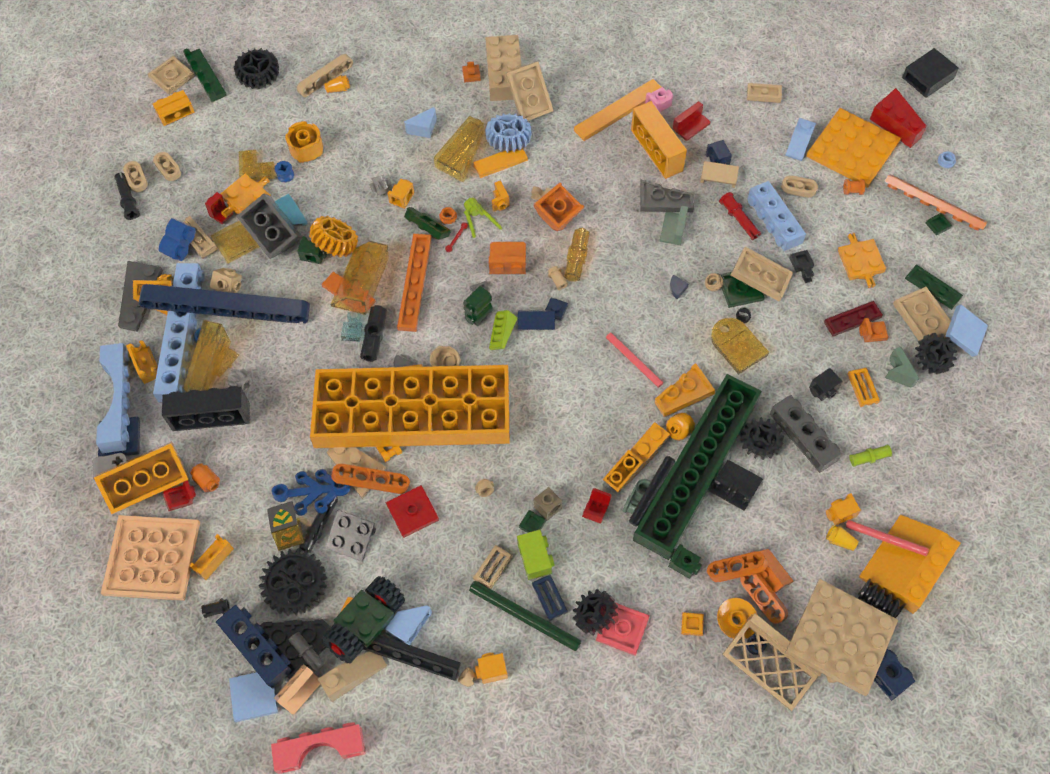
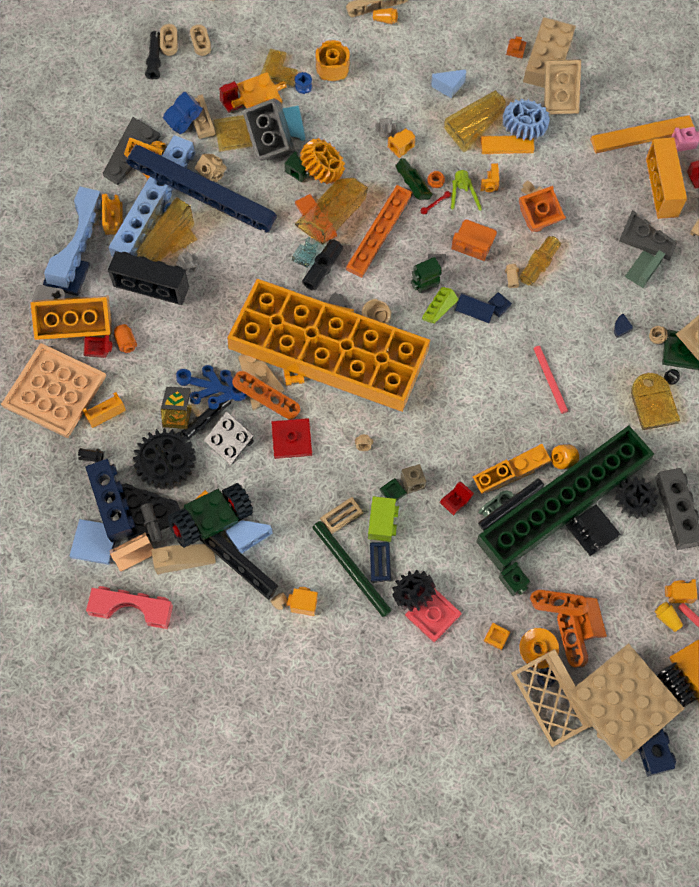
camera: 20 degrees right, 5 degrees up
(686, 391) = (590, 426): light orange wing -> none

